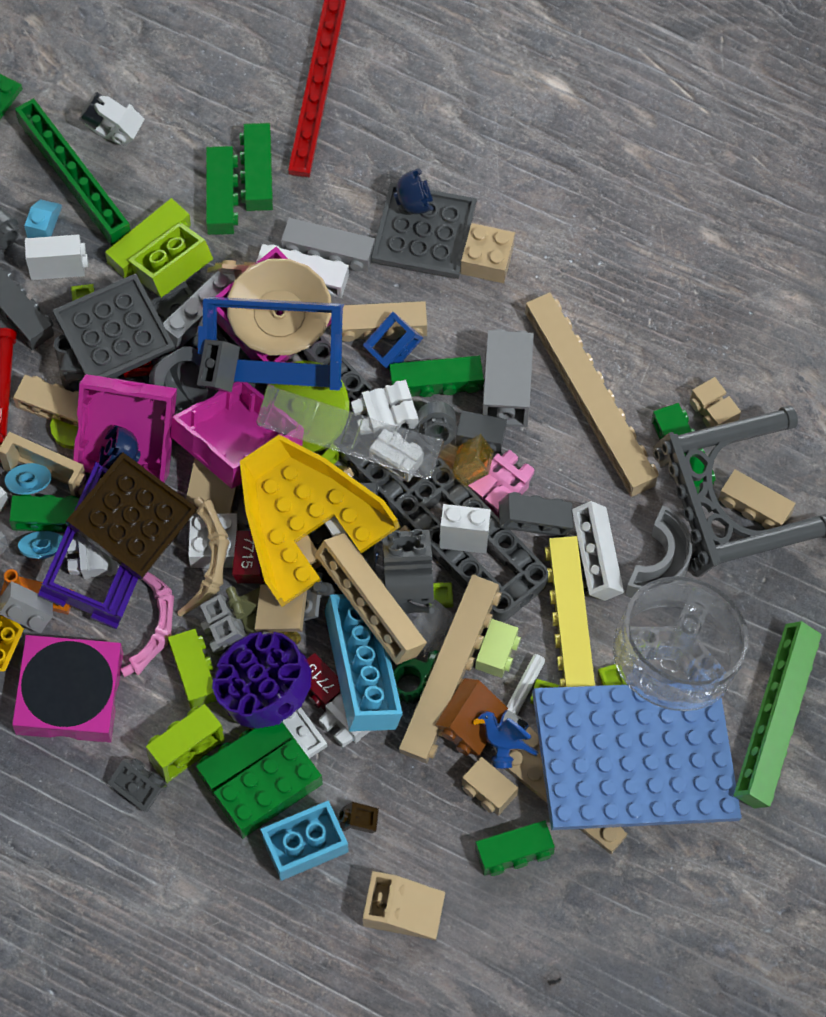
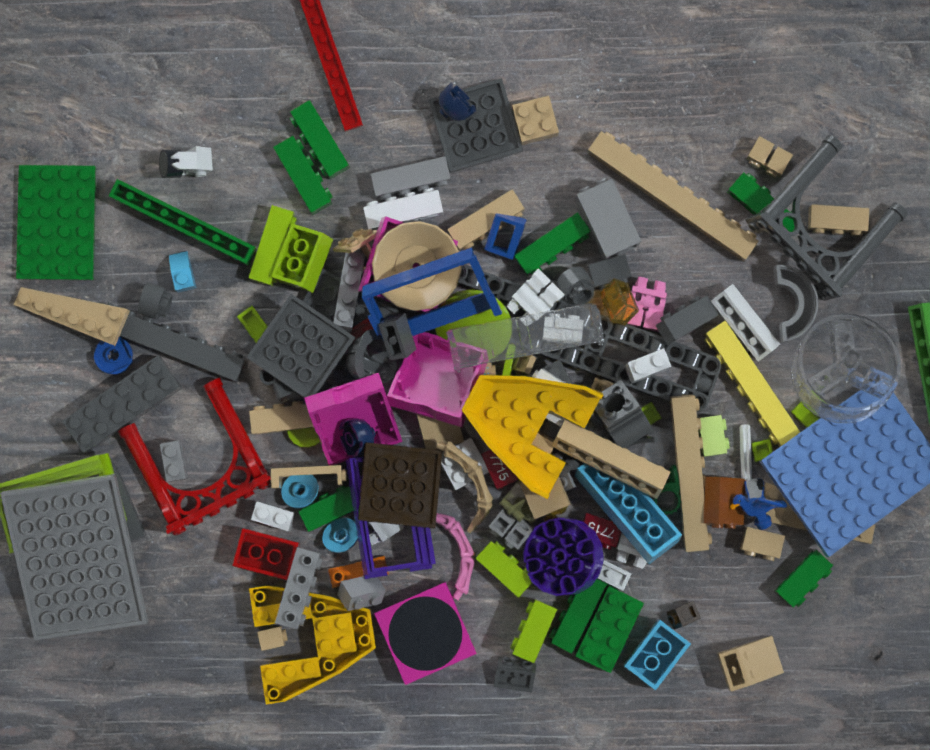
camera: 25 degrees left, 20 degrees up
(55, 257) = (214, 302): white brick -> none

